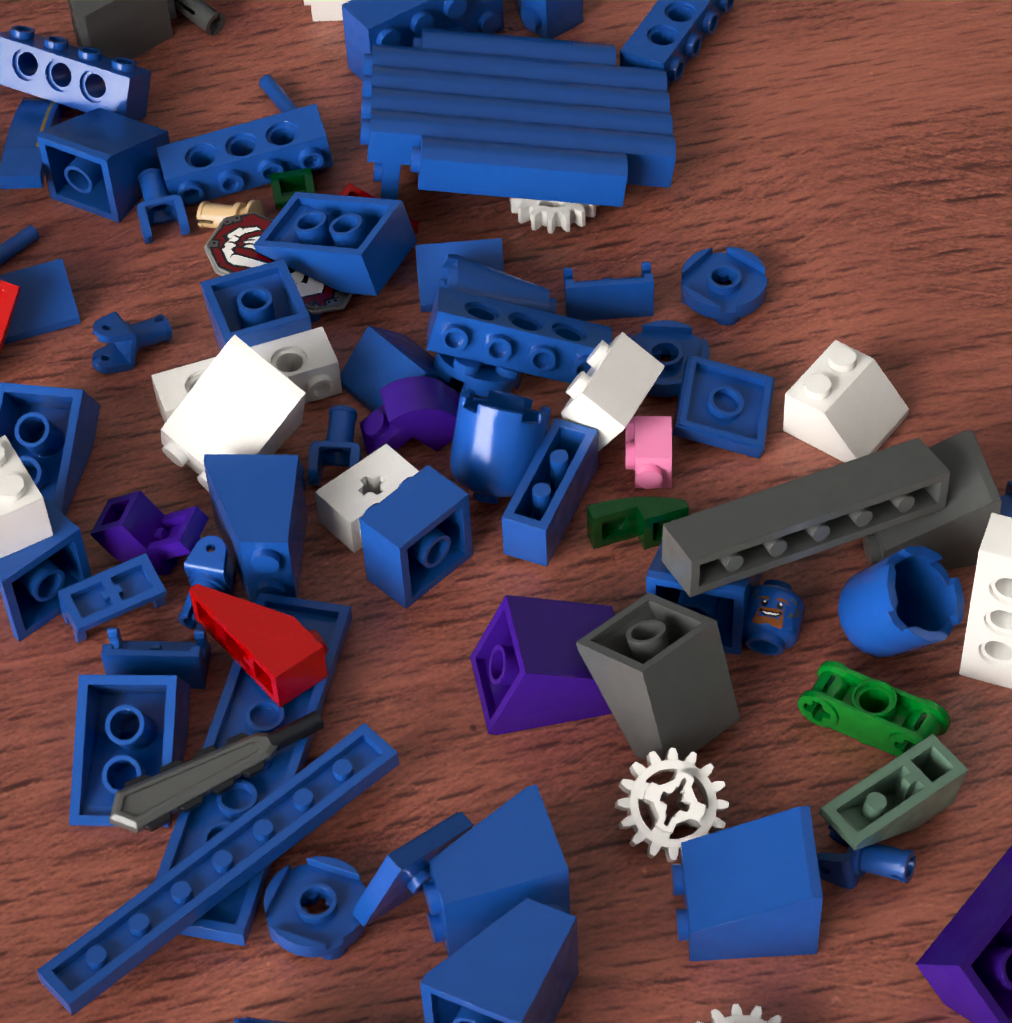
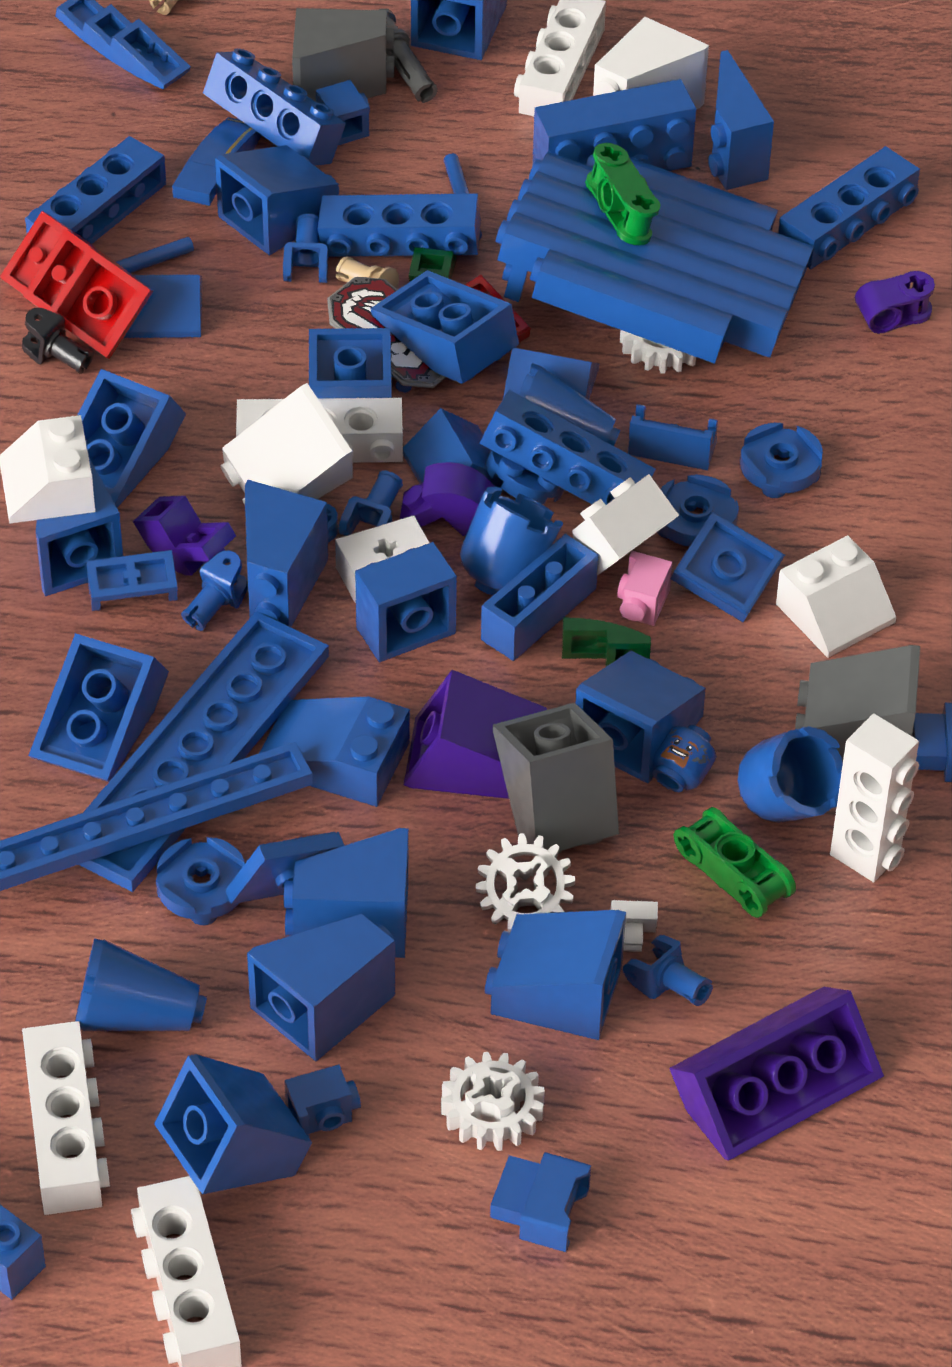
camera: 15 degrees right, 0 degrees up
(126, 340) = (230, 363): blue piece -> none
(148, 54) = (349, 107): none -> blue brick
(181, 785) = (127, 749): dark grey sword -> none
(183, 659) = (170, 649): blue hinge -> none
(264, 642) = (240, 652): red slope -> none
(412, 702) = (346, 742): none -> blue slope
(470, 63) = (622, 194): none -> green piece
(764, 101) = (893, 303): none -> dark purple piece
(804, 516) = (734, 676): dark grey brick -> none
(812, 796) = (640, 918): none -> white tile
(897, 795) = (714, 931): sand green slope -> none

